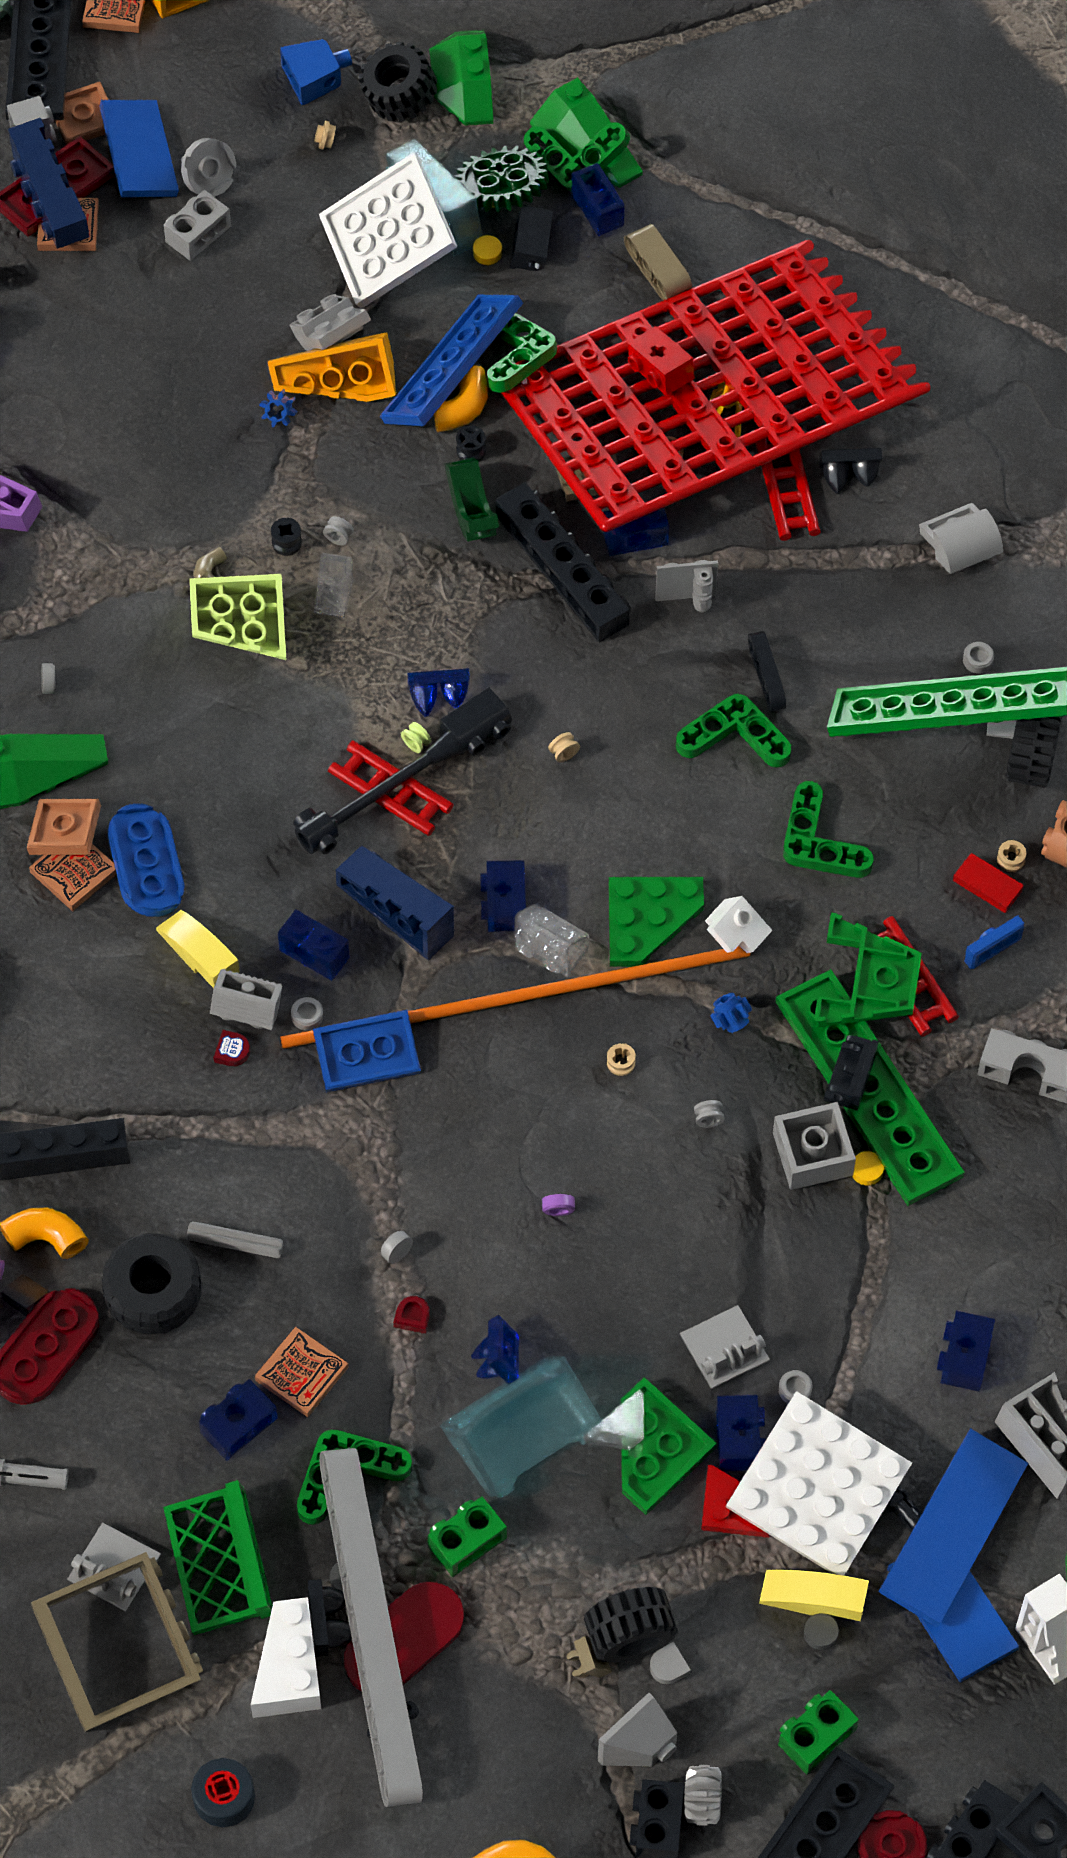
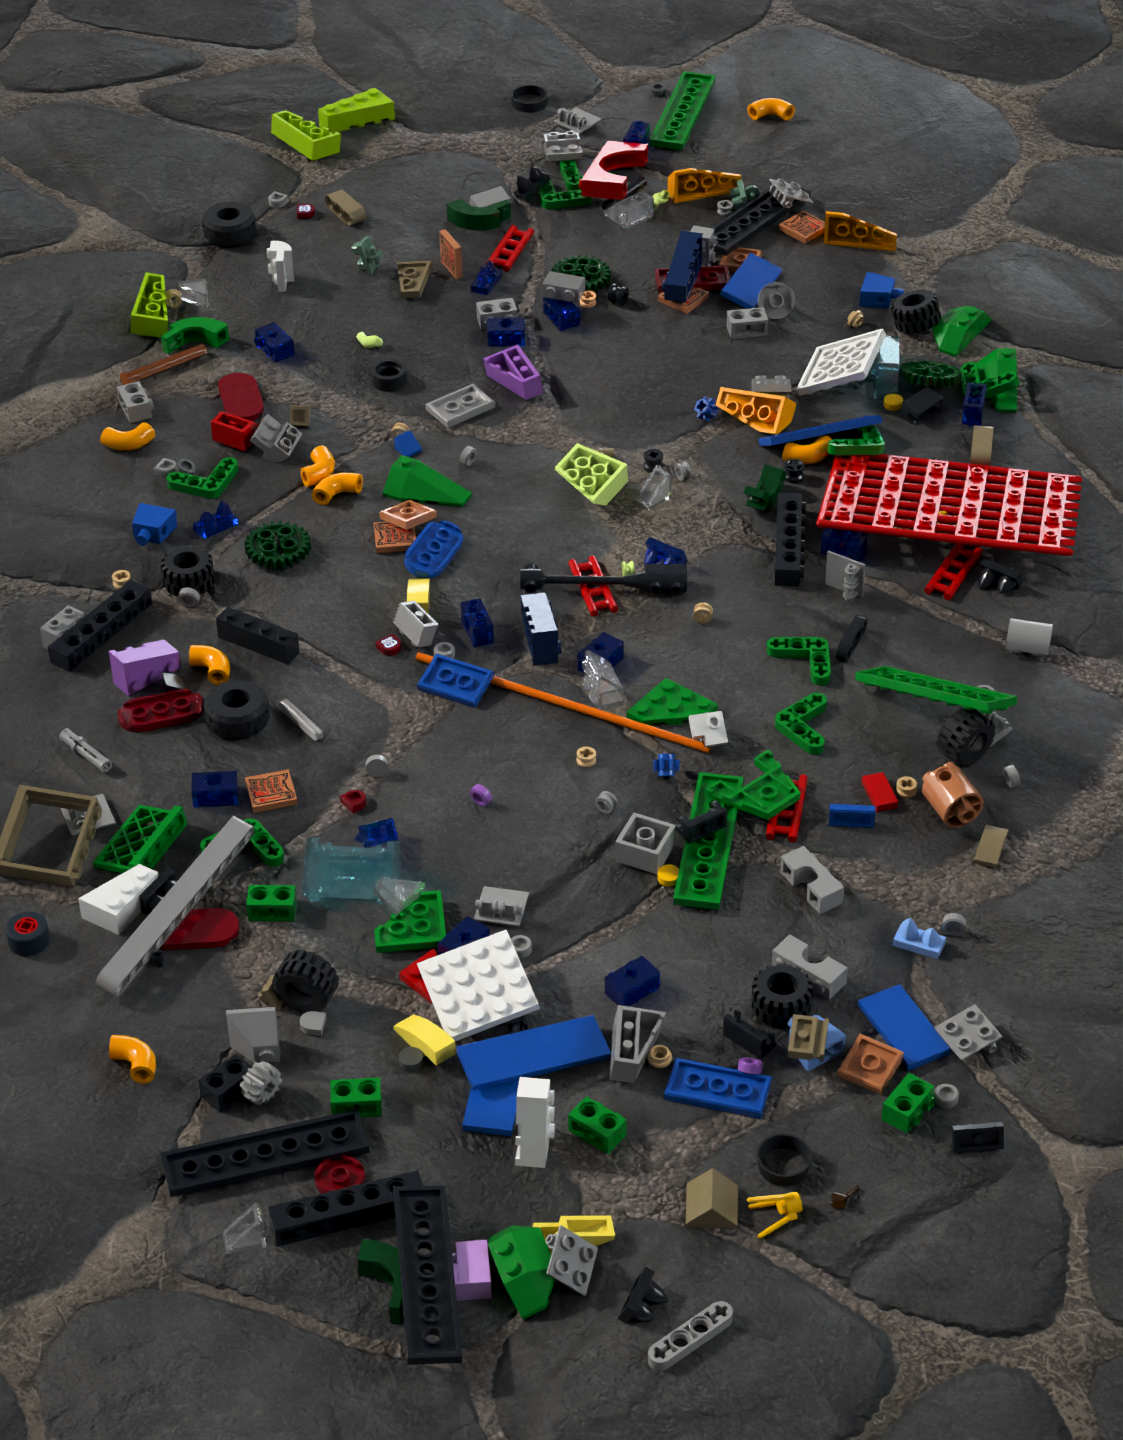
camera: 40 degrees right, 20 degrees down
(660, 360) = (927, 473): red brick -> none

